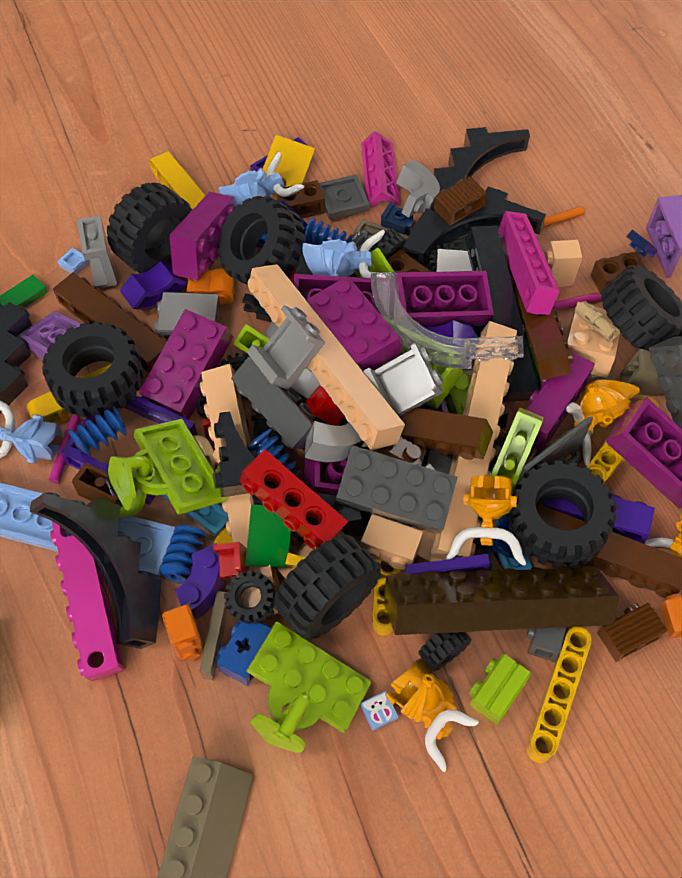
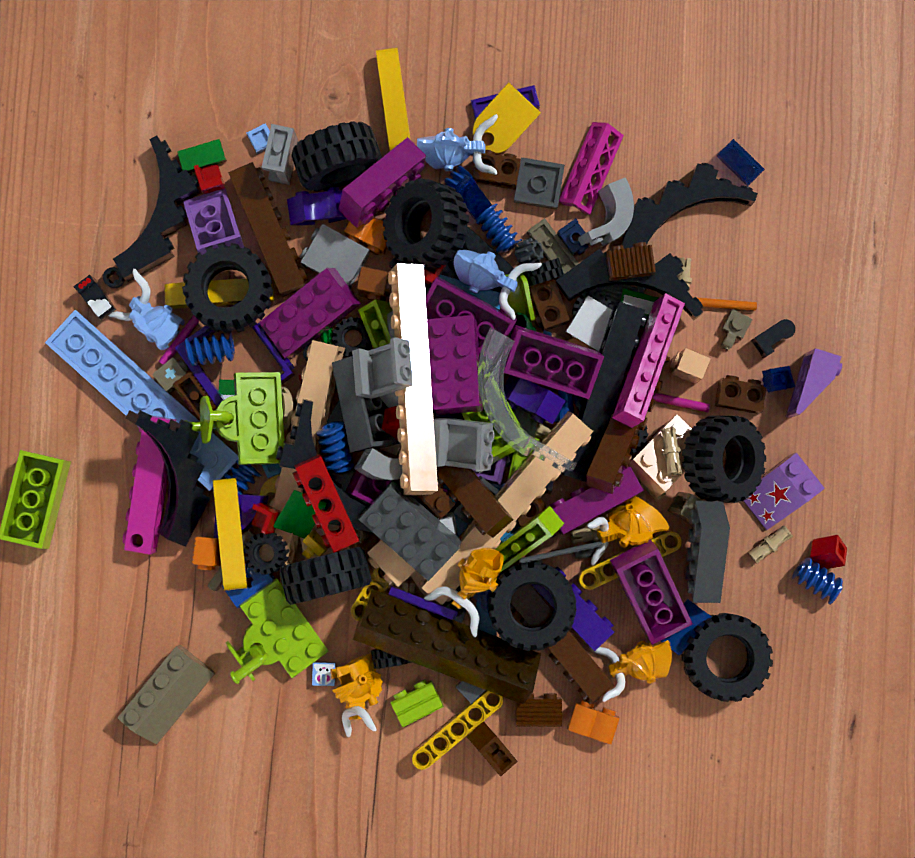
camera: 25 degrees right, 25 degrees up
(38, 307) = (209, 178): none -> red panel
(62, 483) = (170, 373): none -> dark tan brick
(201, 594) = (229, 534): none -> yellow beam
(237, 312) = (374, 284): none -> dark orange brick
(497, 121) = (740, 162): none -> clear blue plate
(576, 229) = (735, 327): none -> dark tan plate
(612, 222) = (779, 332): none -> black leg
(612, 690) = (492, 748): none -> reddish brown brick

